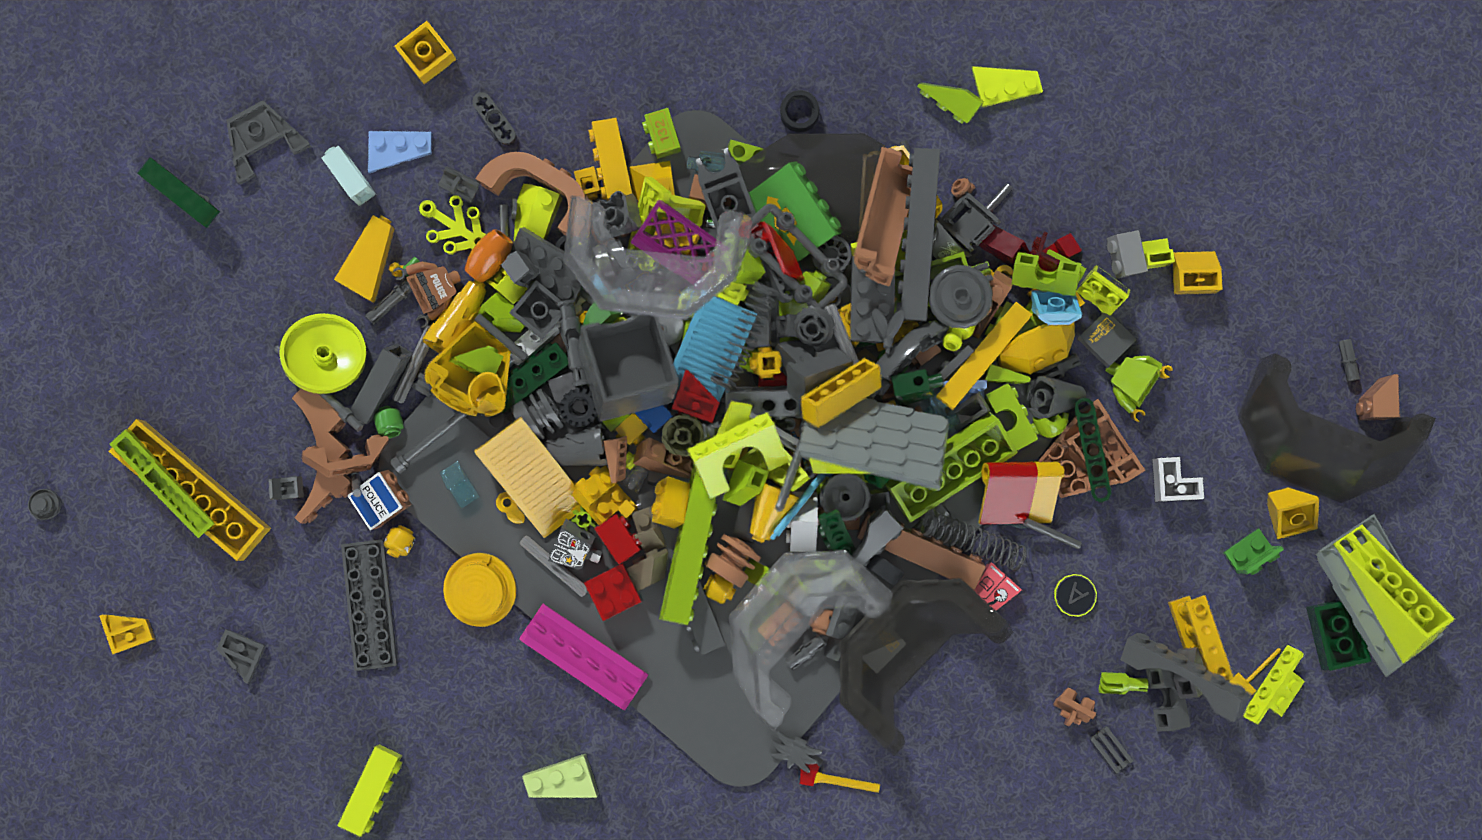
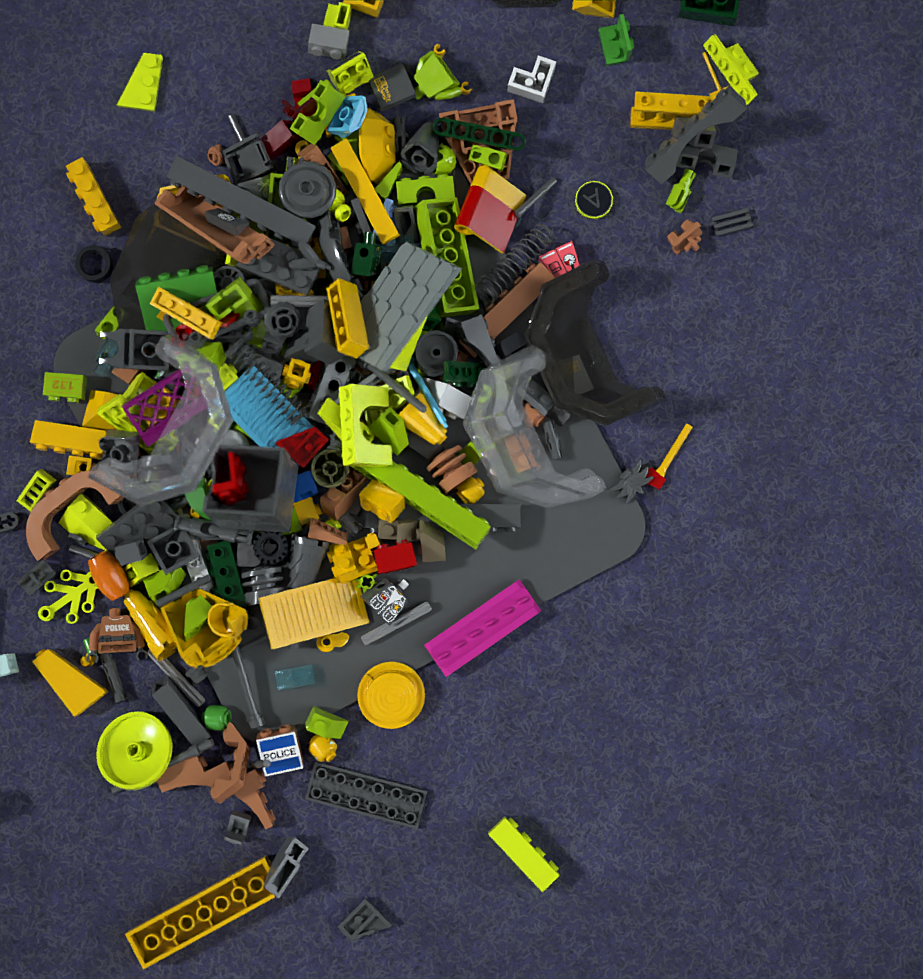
camera: 70 degrees left, 0 degrees up
(161, 482) = (189, 931): lime slope -> none
(264, 551) = (284, 866): none -> dark grey slope
(424, 534) = (325, 724): none -> lime slope
(562, 779) = (578, 686): yellowish green wedge -> none
(564, 147) = (30, 486): none -> neon yellow slope
(613, 592) = (438, 580): red brick -> none
(622, 352) = (236, 489): none -> red bracket
(780, 225) = (185, 313): none -> yellow tile
(808, 258) = (223, 302): none -> lime piece
(868, 81) = (93, 196): none -> yellow brick
(893, 227) = (226, 221): none -> dark grey slope
(957, 100) = (140, 128): lime slope -> none
(1073, 468) = (488, 156): none -> lime leg

